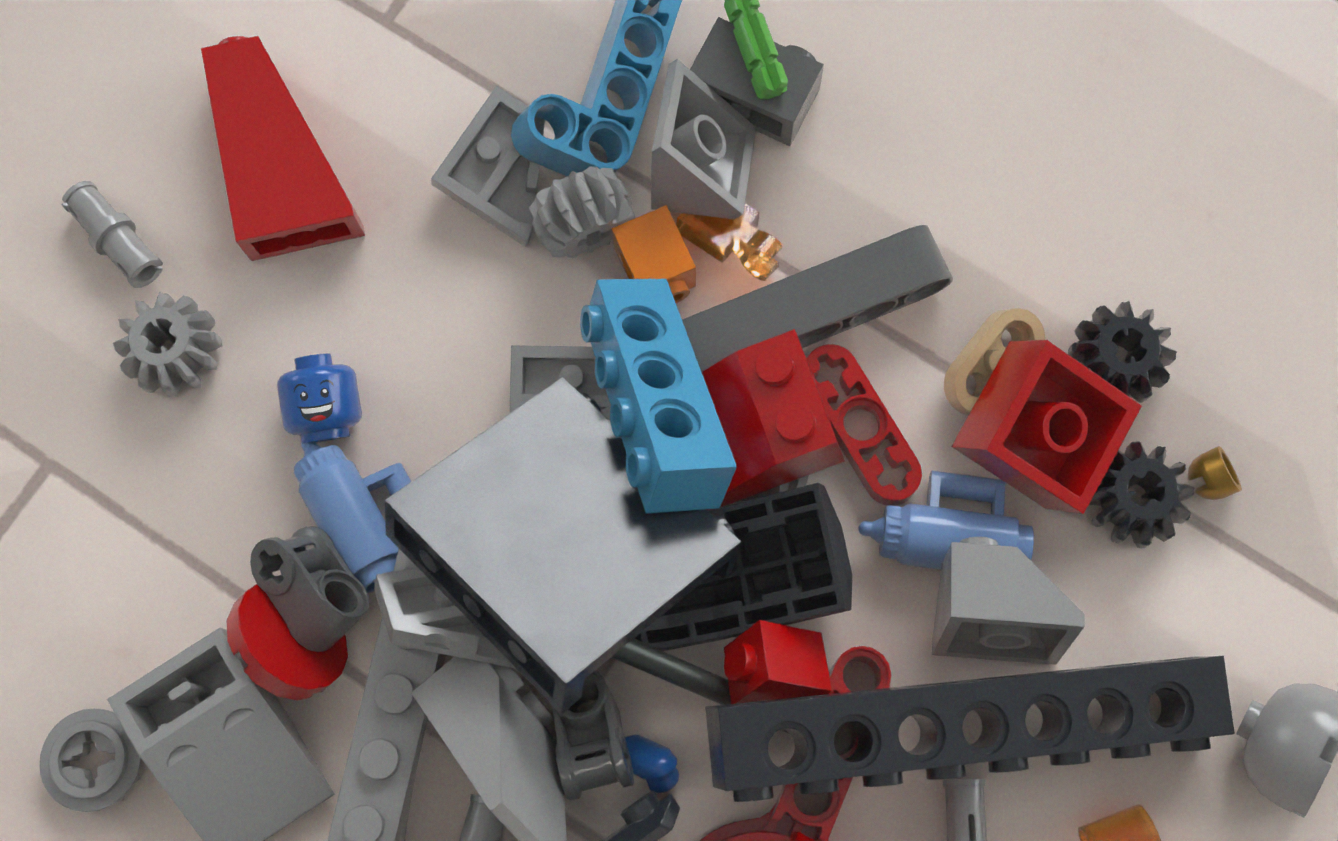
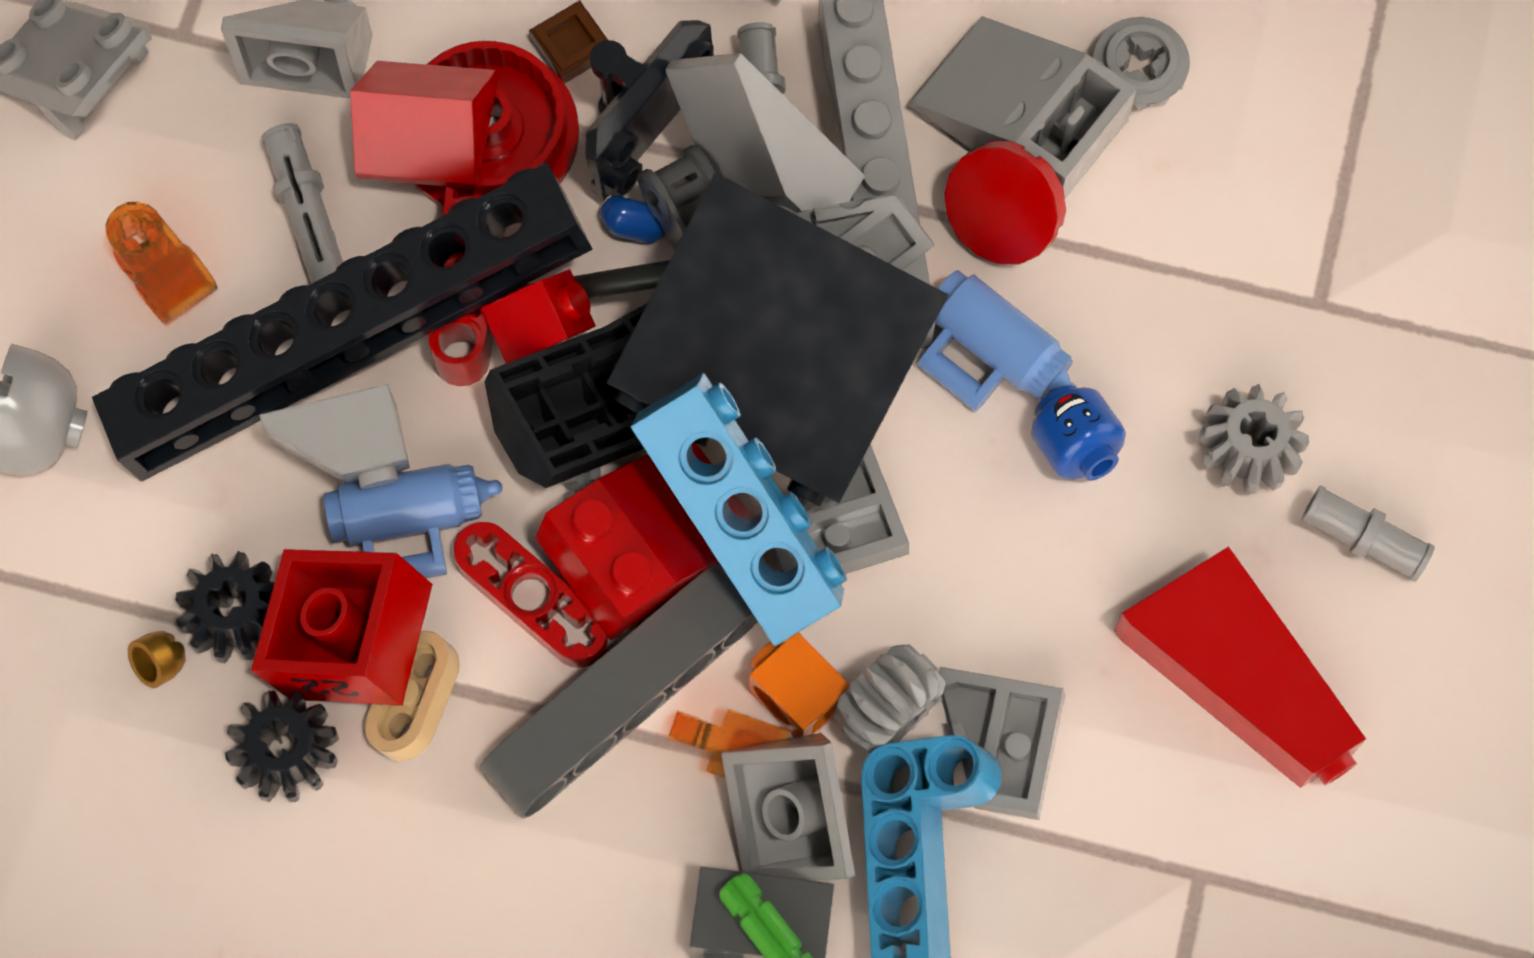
camera: 155 degrees right, 5 degrees down
(315, 587) = (1006, 255): dark grey piece -> none

